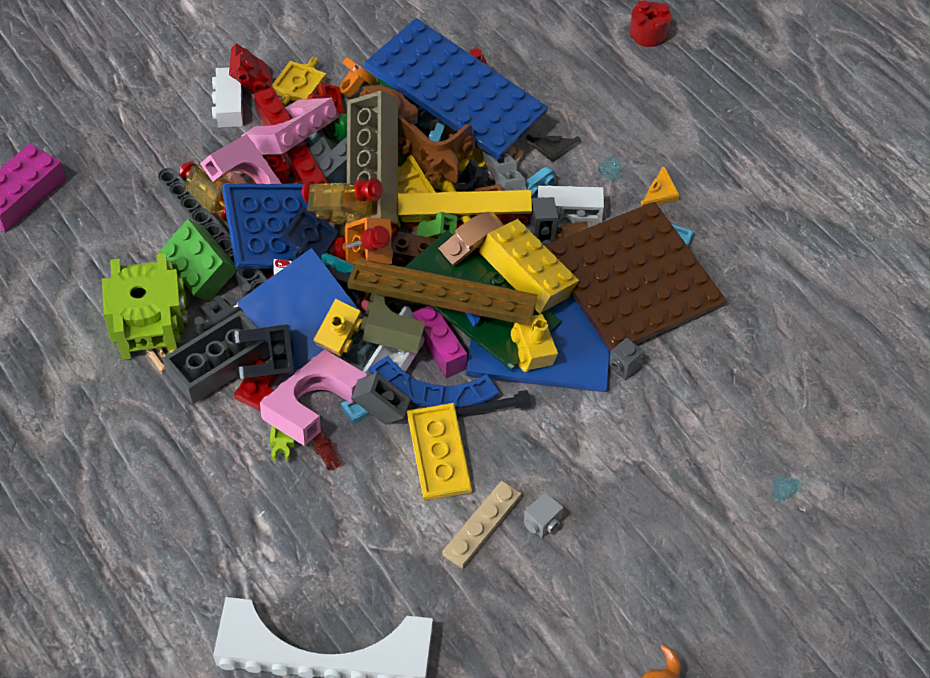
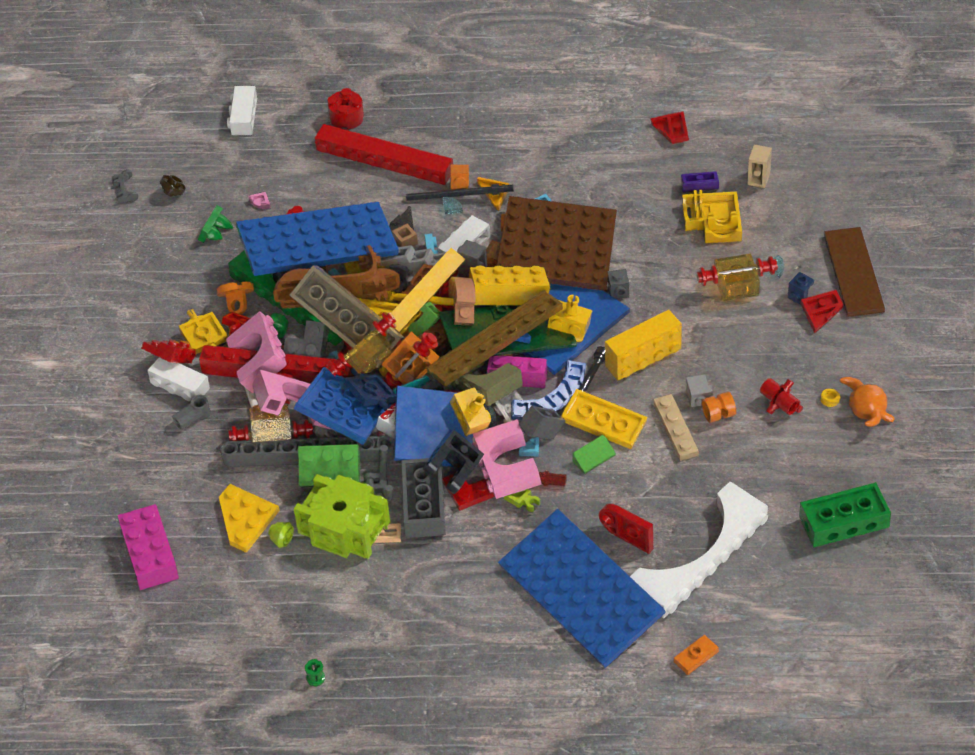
camera: 50 degrees left, 5 degrees down
(95, 272) = (281, 533): none -> lime cone
(106, 237) = (245, 516): none -> yellow plate
(193, 564) = (582, 588): none -> blue plate
(201, 128) = (196, 410): none -> dark grey piece
(299, 558) = (627, 527): none -> red tile
(386, 470) = (593, 454): none -> bright green slope
(435, 13) = (218, 220): none -> green tile
(490, 32) = (260, 200): none -> bright pink tile
(534, 155) = (405, 236): none -> medium nougat plate
(535, 548) = (718, 407): none -> orange wheel
(557, 427) = (643, 344): none -> yellow brick
(595, 601) = (780, 397): none -> red pin
(623, 84) = (383, 154): none -> red brick
(643, 652) = (830, 397): none -> yellow tile
(646, 151) = (459, 176): none -> orange brick
(655, 186) = (494, 189): none -> black bar
(726, 456) = (737, 275): none -> clear yellow brick
(760, 568) = (821, 308): none -> red wing
(765, 525) = (799, 287): none -> dark blue bracket
(798, 389) = (714, 214): none -> yellow piece
(832, 349) = (699, 181): none -> dark purple brick
(843, 570) = (854, 272): none -> reddish brown tile
(883, 283) = (672, 127): none -> red wing
(898, 388) = (759, 166): none -> tan brick

